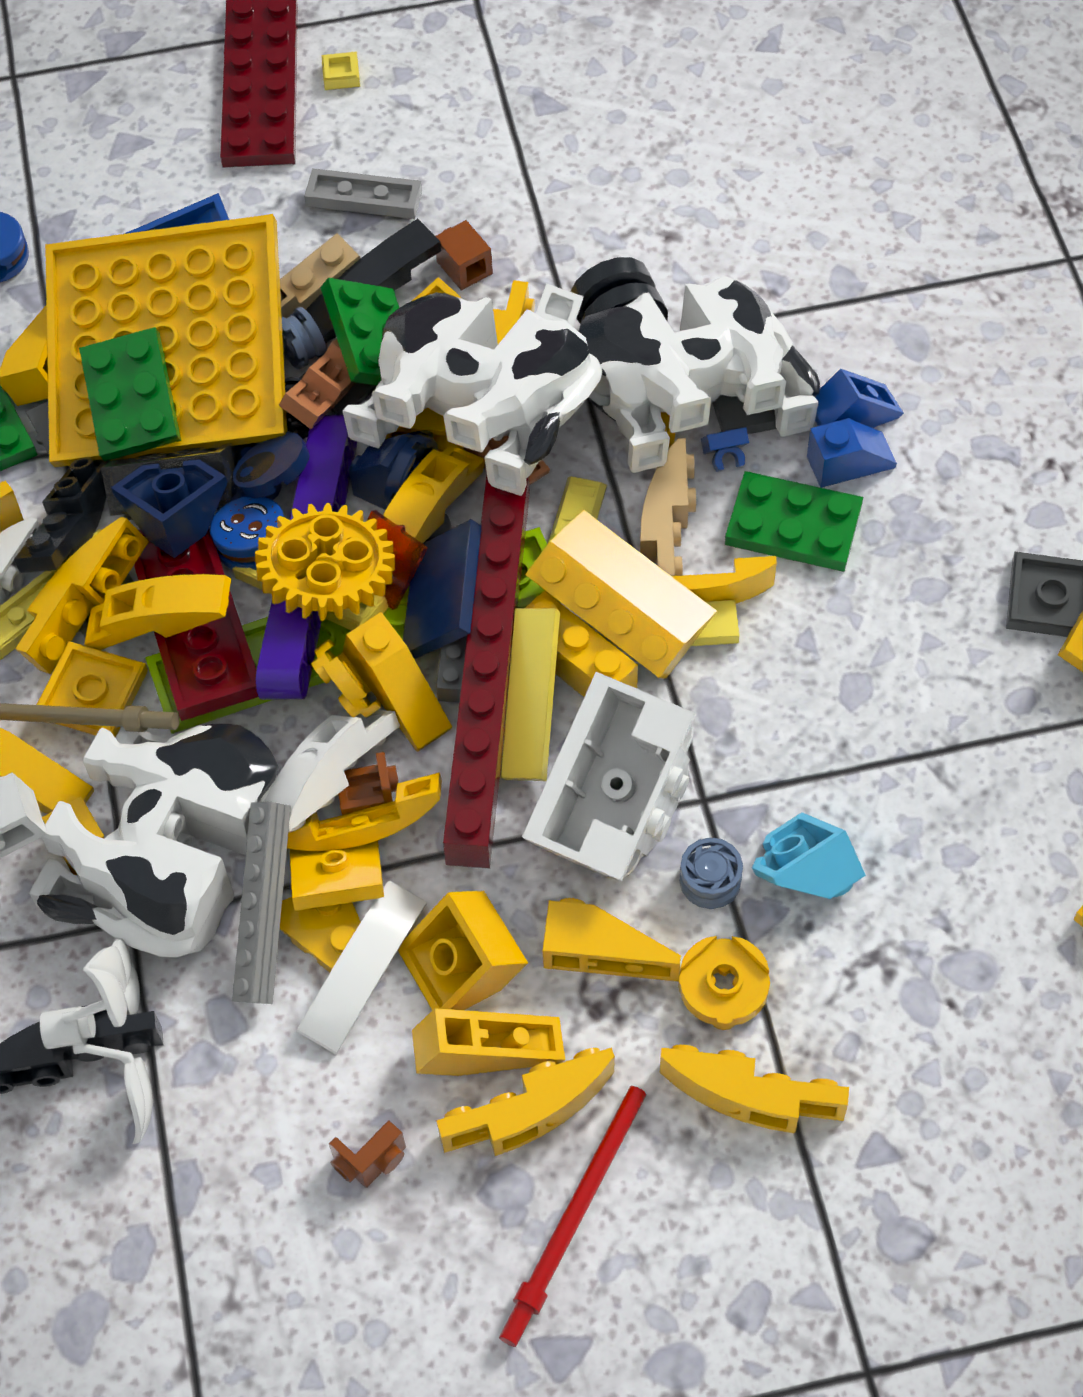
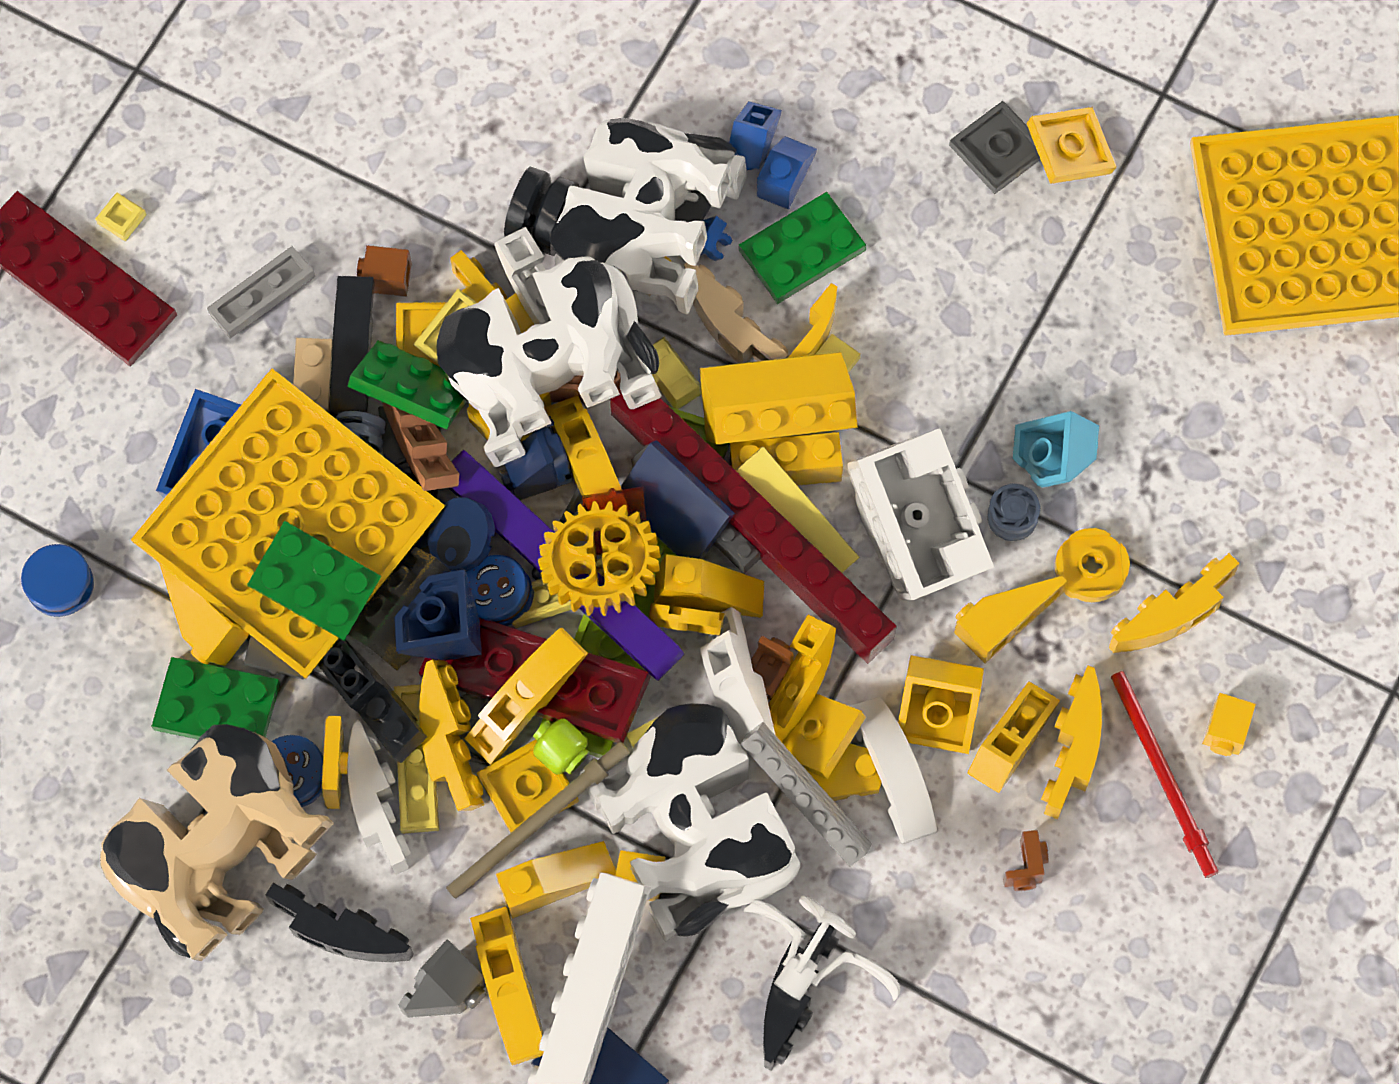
camera: 50 degrees left, 10 degrees up
(138, 676) = (560, 746): none -> lime head
(676, 1232) = (1228, 725): none -> yellow brick

